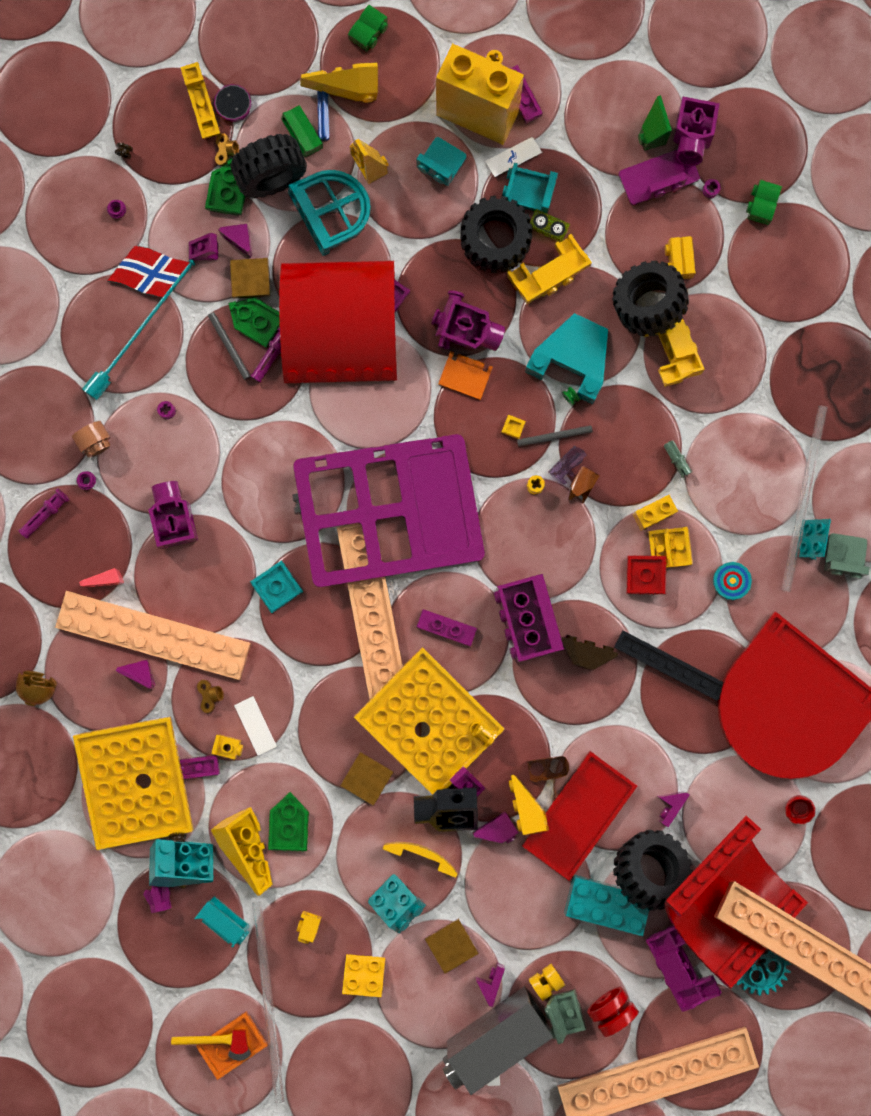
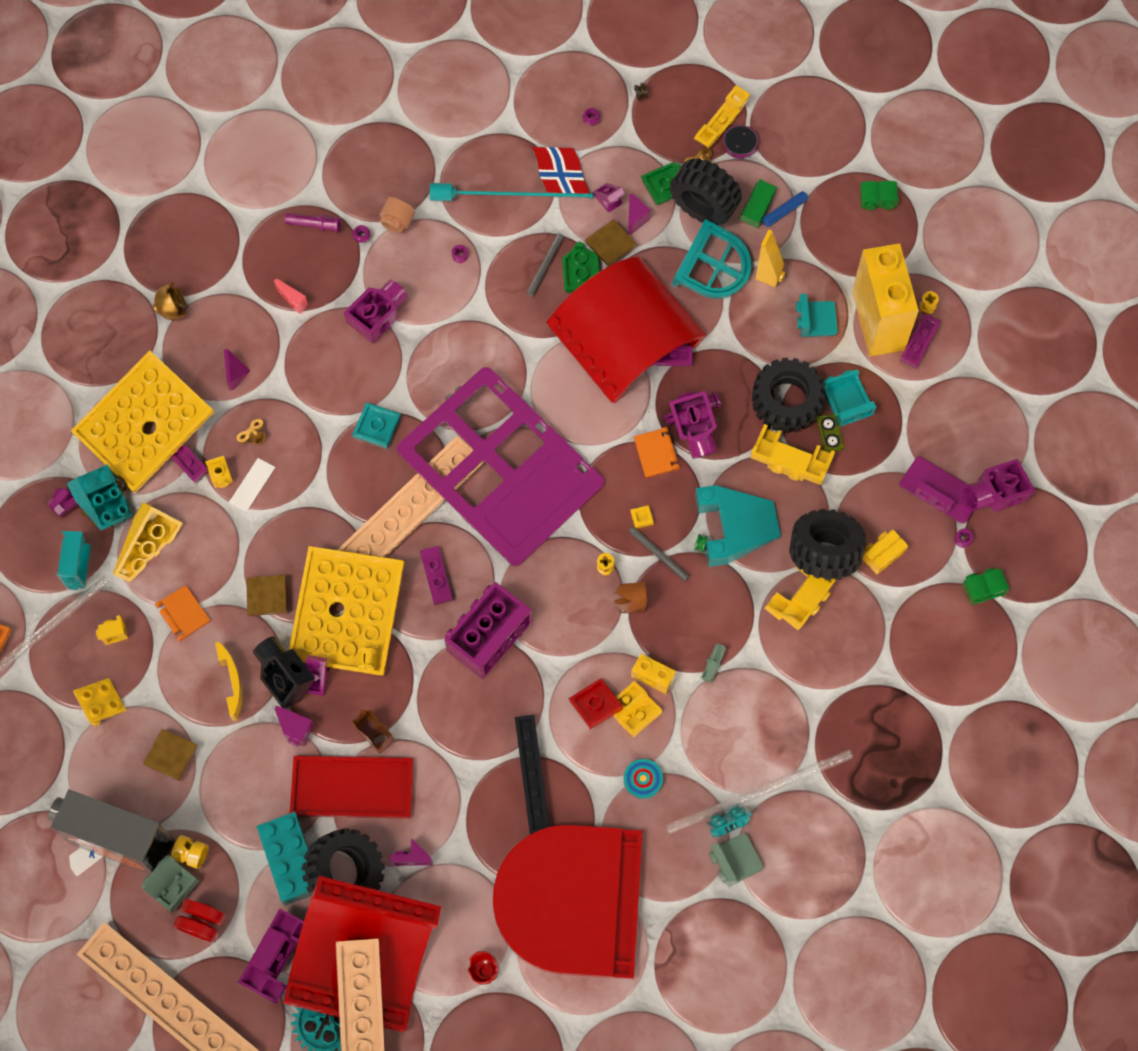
camera: 55 degrees right, 15 degrees down
(153, 635) = (273, 363): light nougat plate -> none
(274, 345) = (550, 298): magenta pin -> none
(288, 825) = (186, 561): green tile -> none
(331, 857) = (182, 613): none -> orange piece
(354, 84) = (826, 213): yellow wedge -> none
(396, 904) = (176, 688): teal bracket -> none
(490, 988) = (154, 810): magenta slope -> none
(516, 154) = (866, 370): white sticker -> none
(530, 812) = (324, 737): yellow slope -> none
(566, 463) = (649, 578): clear purple plate -> none
(587, 654) = (493, 699): dark brown slope -> none
(656, 127) = (975, 456): green slope -> none

